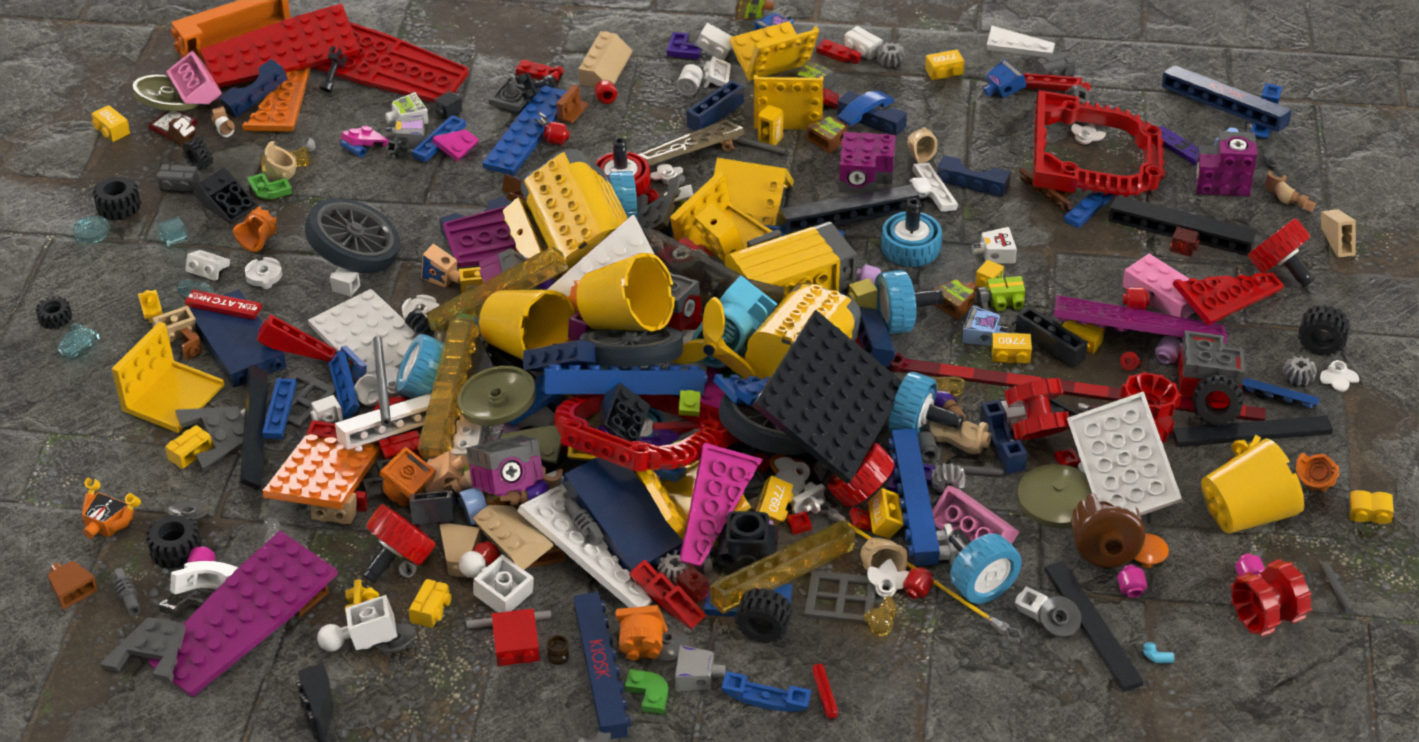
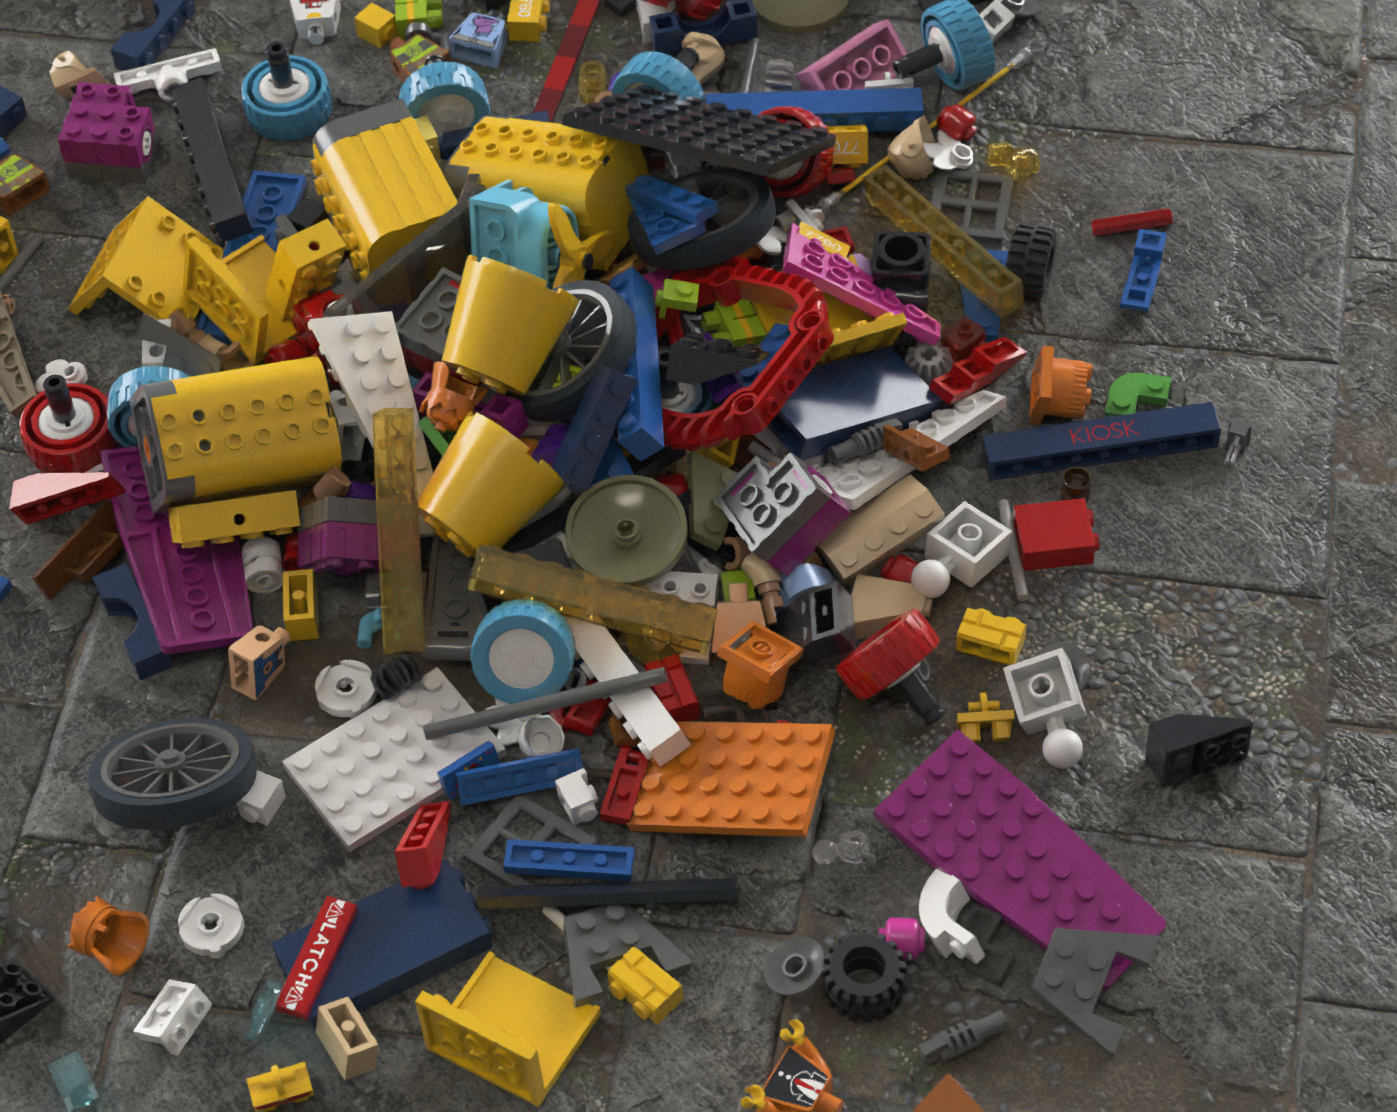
camera: 85 degrees left, 10 degrees up
(191, 343) = (385, 1011): dark orange bracket -> none
(571, 541) = (914, 448): none -> dark orange bracket
(696, 669) = (1106, 342): light grey torso -> none

